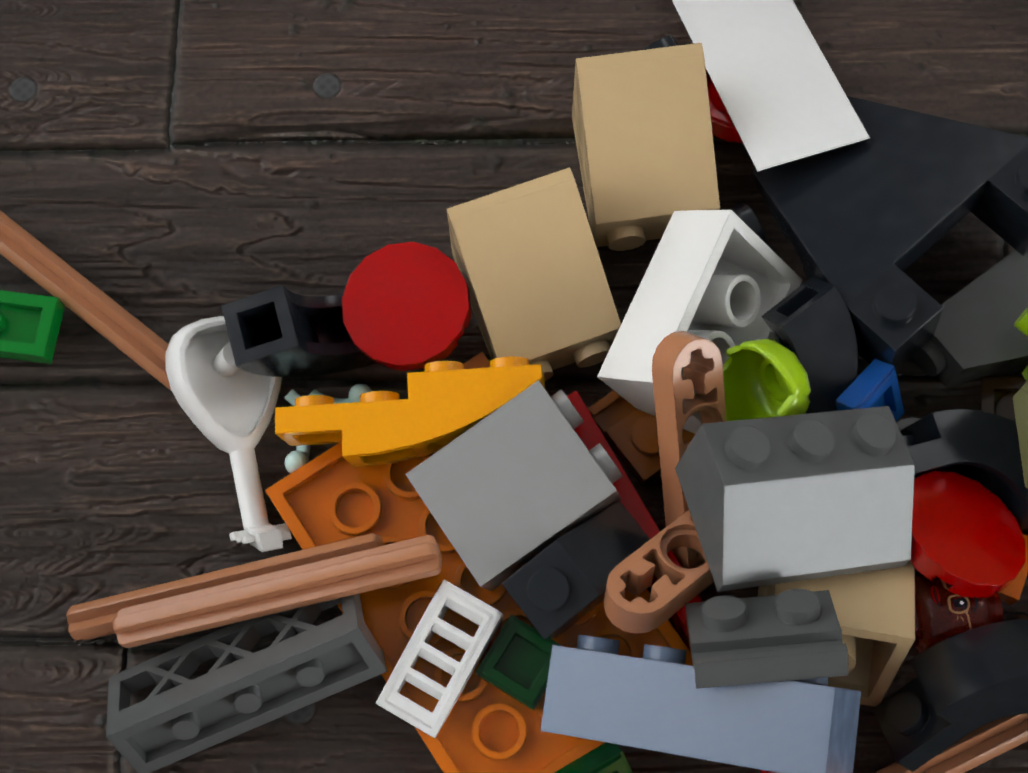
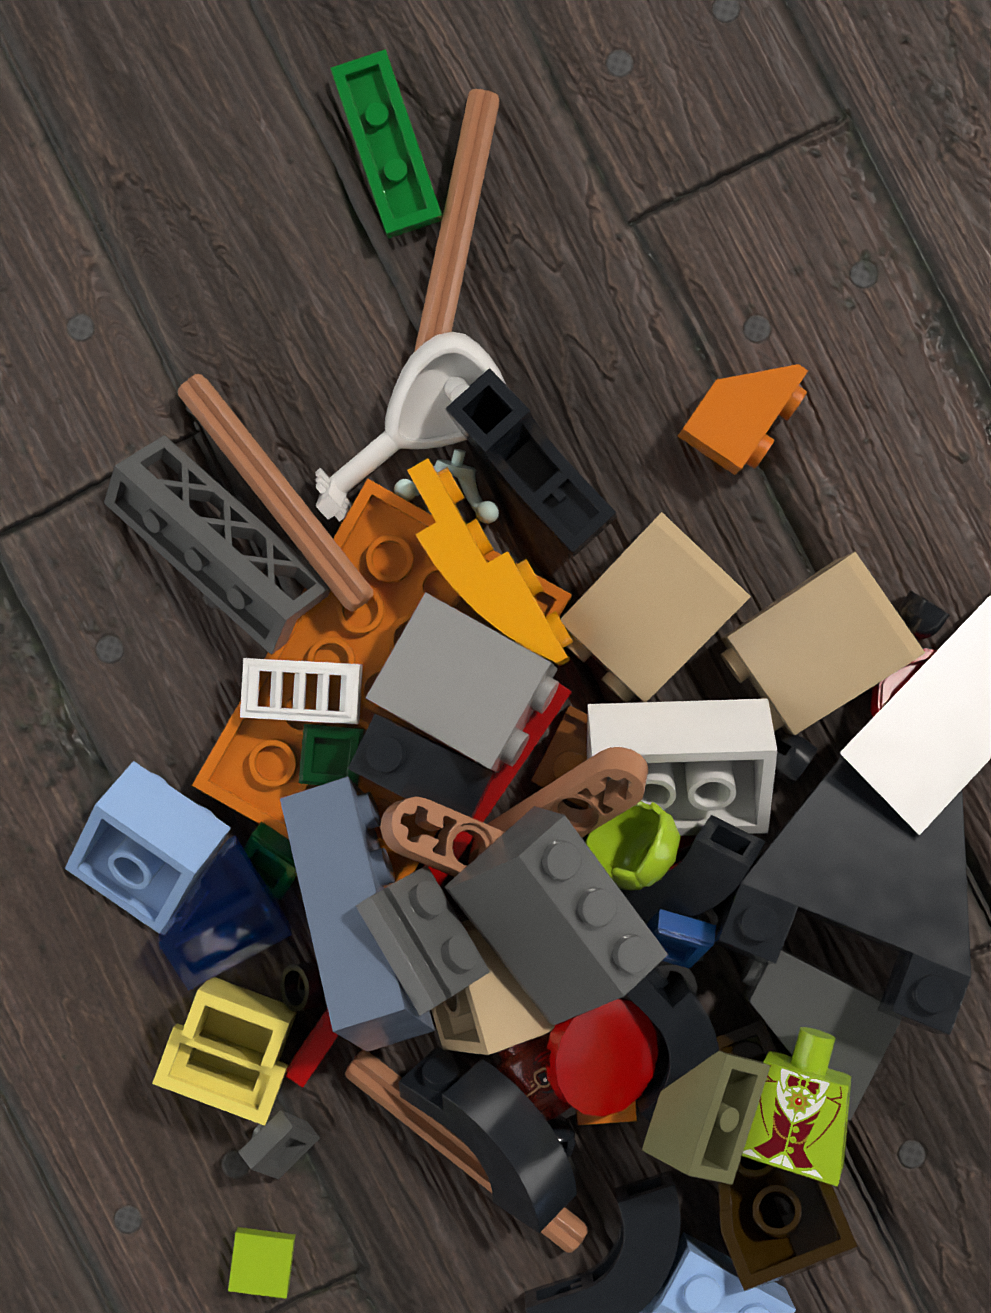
camera: 65 degrees right, 15 degrees up
(278, 591) = (287, 539): nougat axle -> none
(394, 127) = (738, 413): none -> orange slope
(406, 305) = (572, 515): red tile -> none

